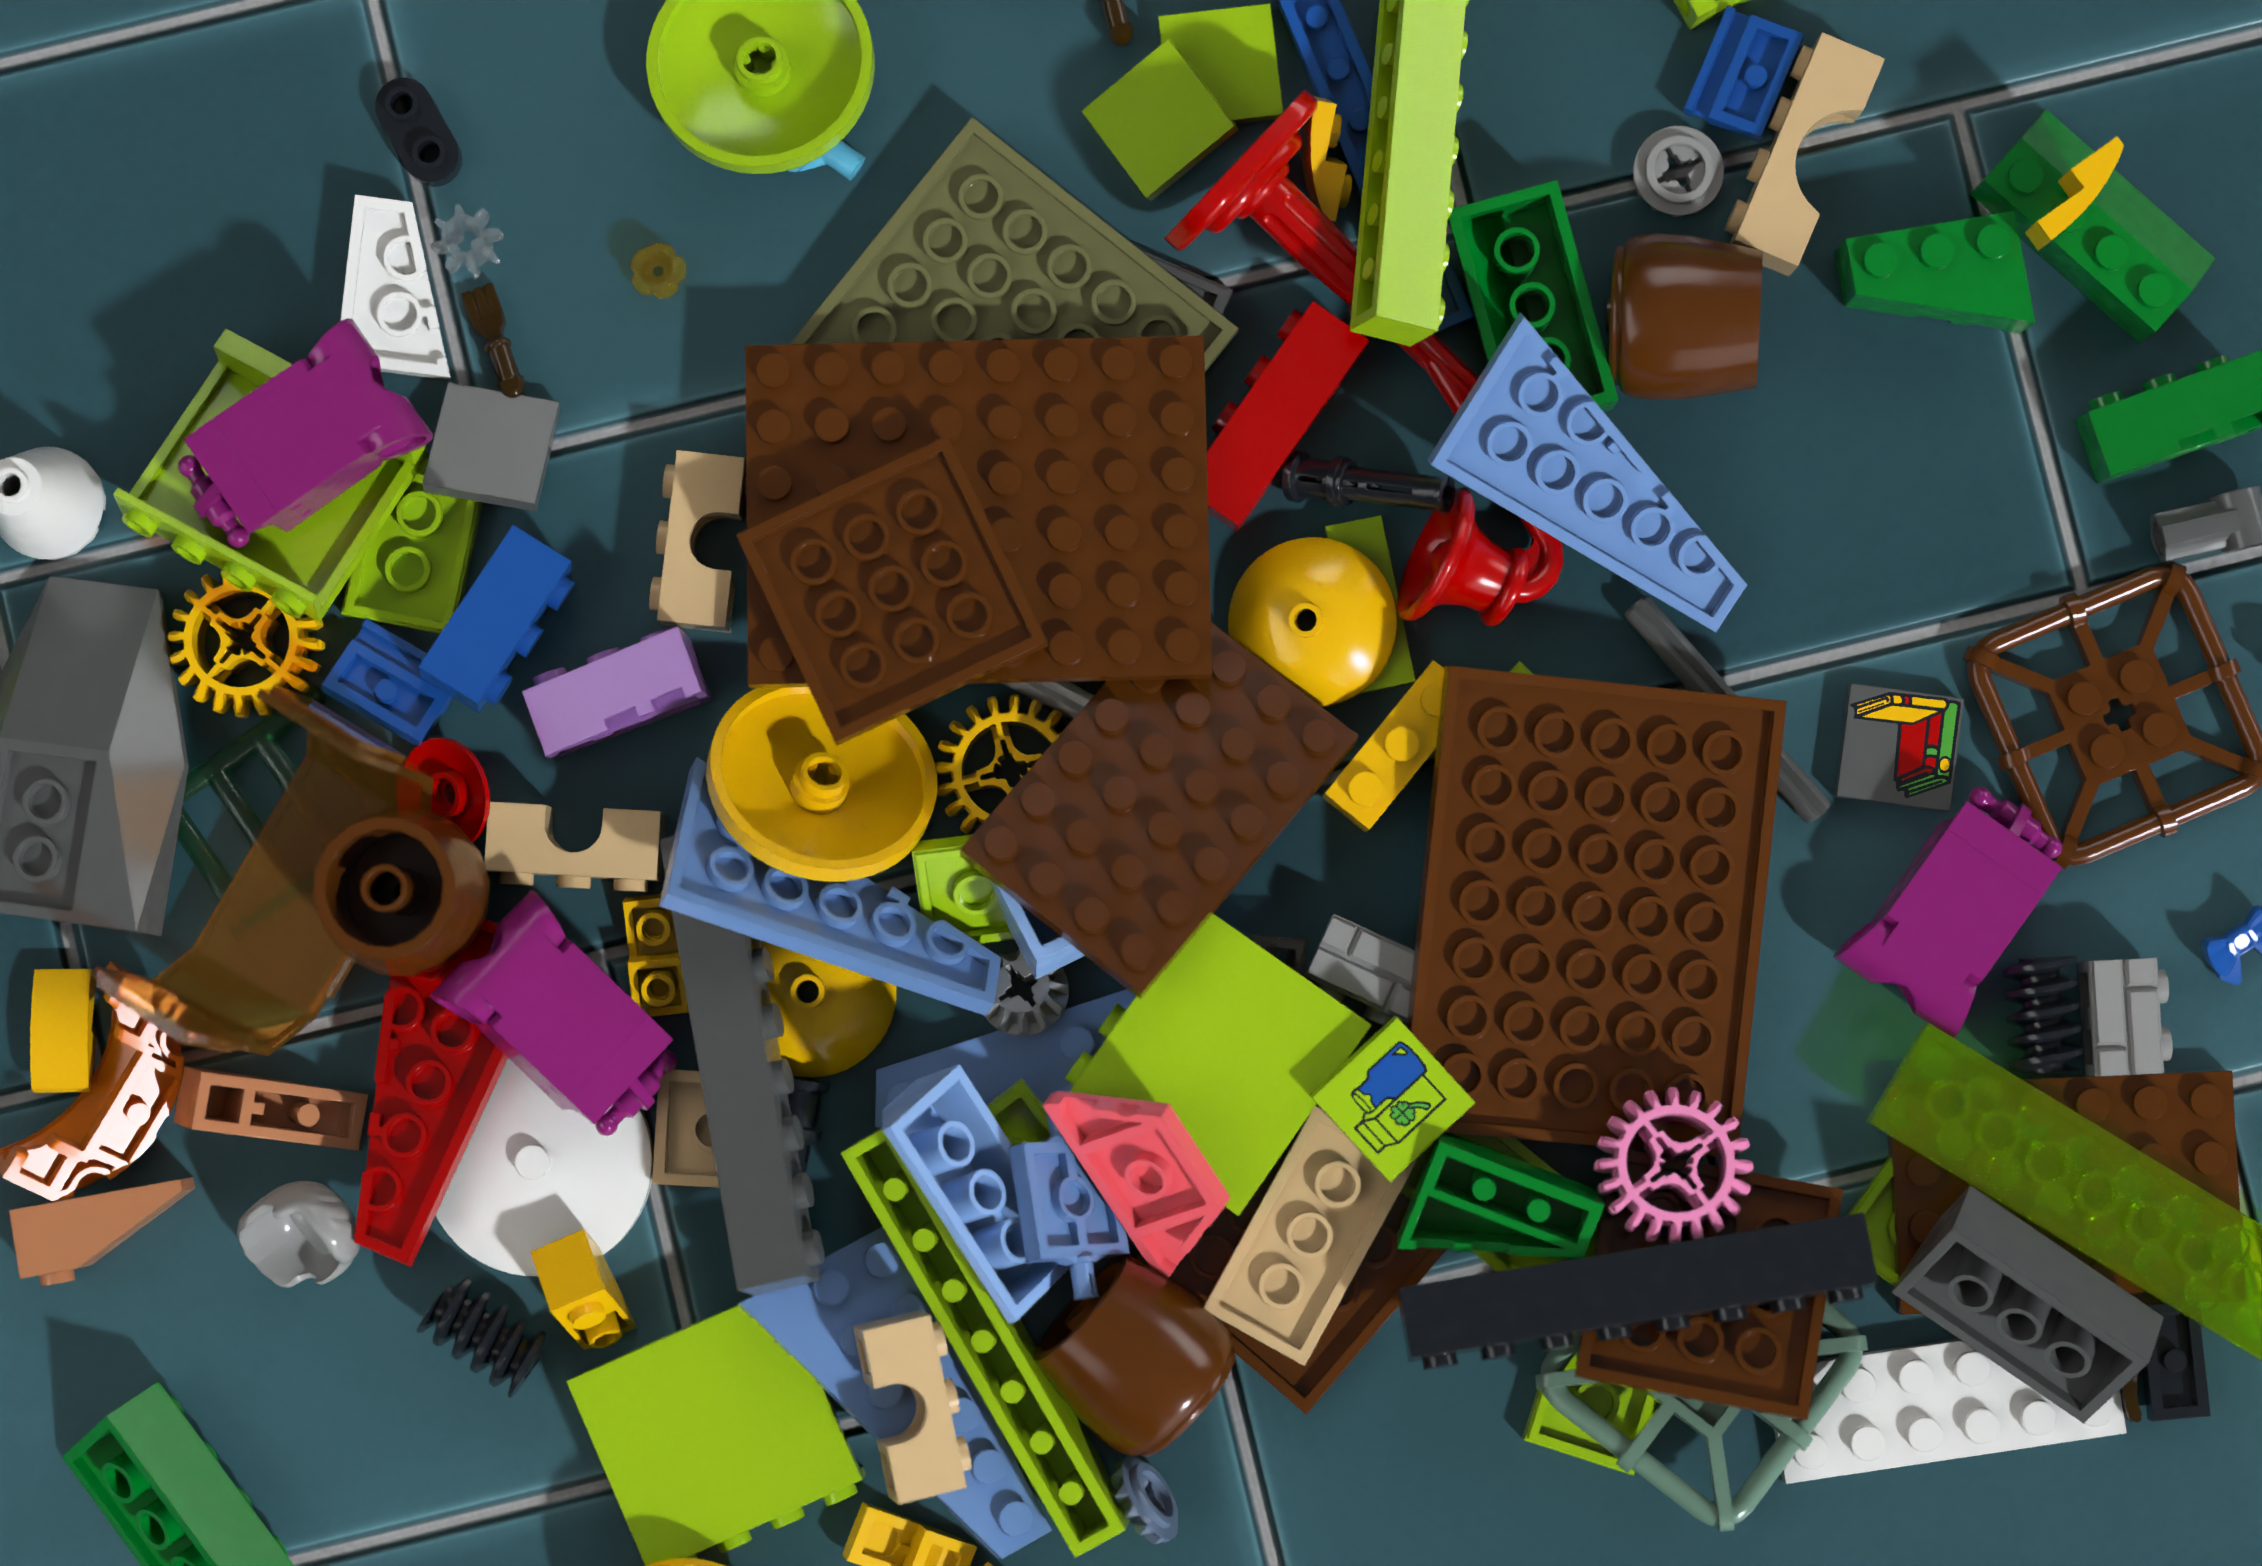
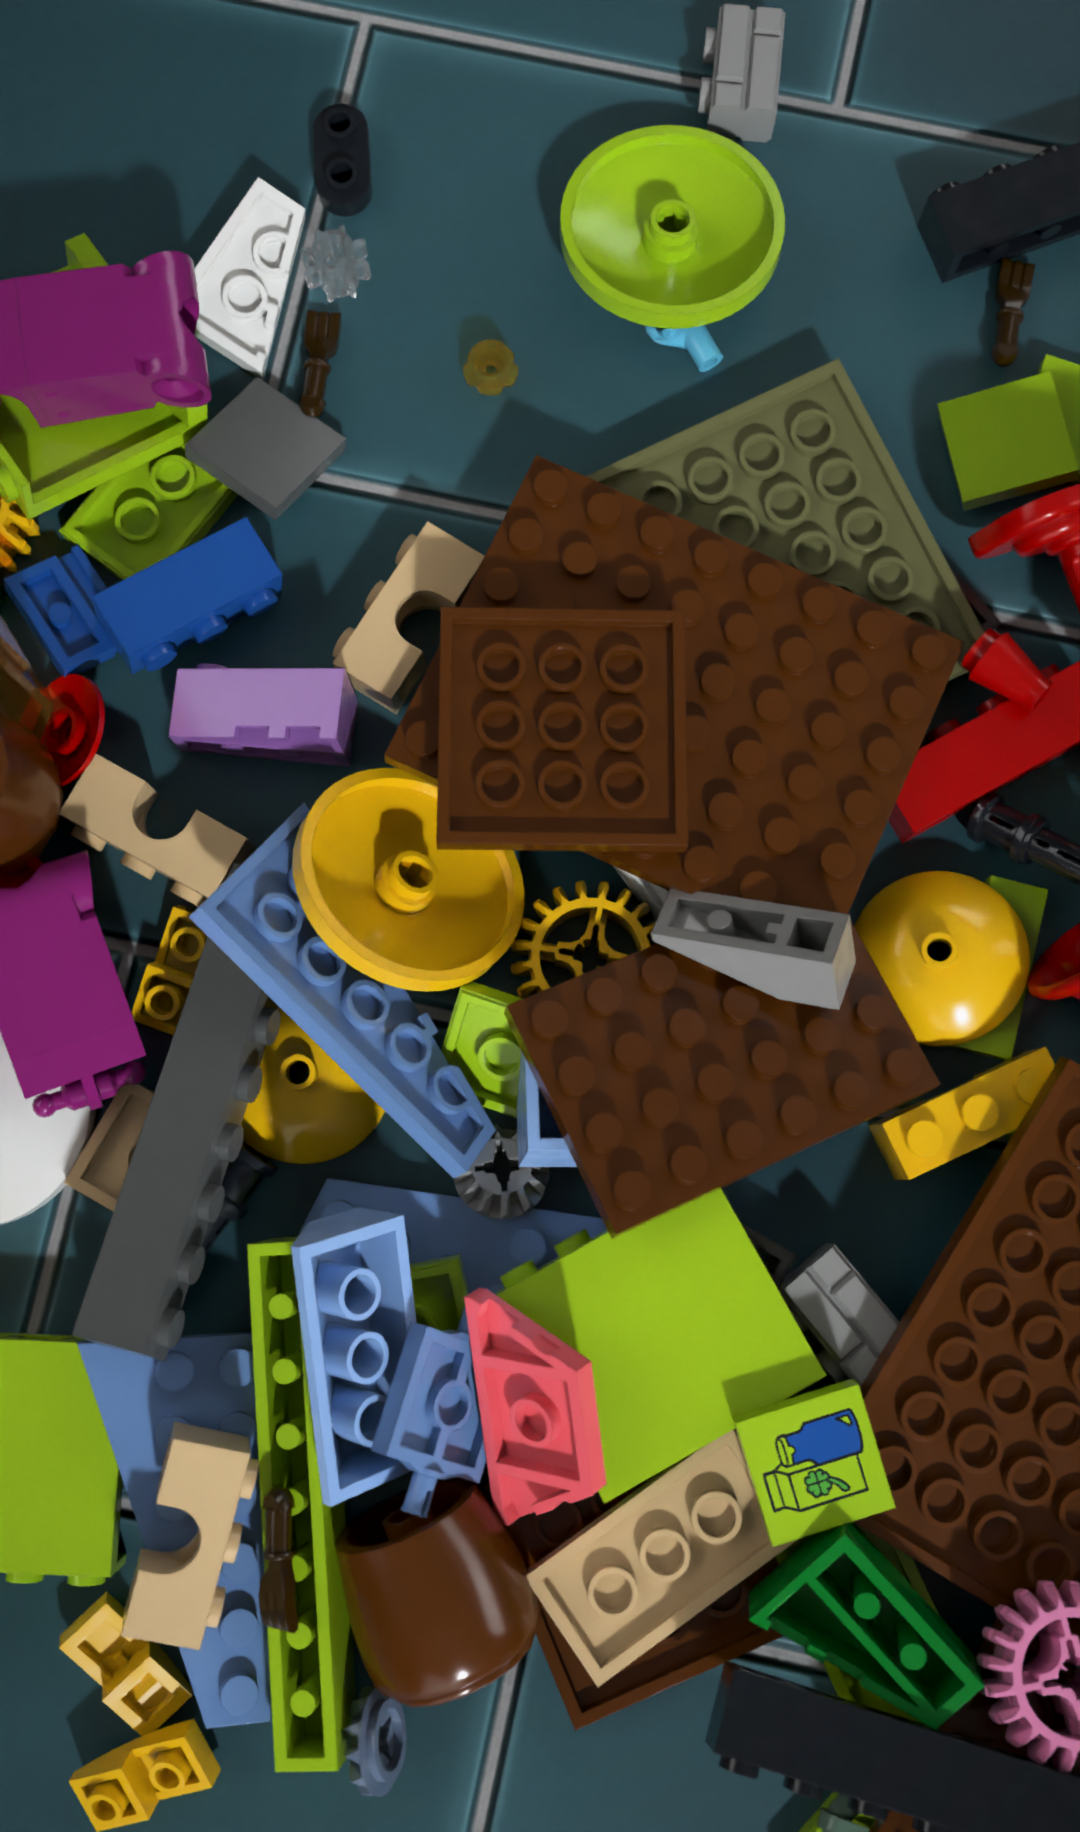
camera: 30 degrees right, 5 degrees down
(1004, 1408) = (278, 1582): none -> dark brown piece
(1150, 692) = (767, 945): none -> light grey slope
(1250, 343) = (1006, 669): none -> red cone

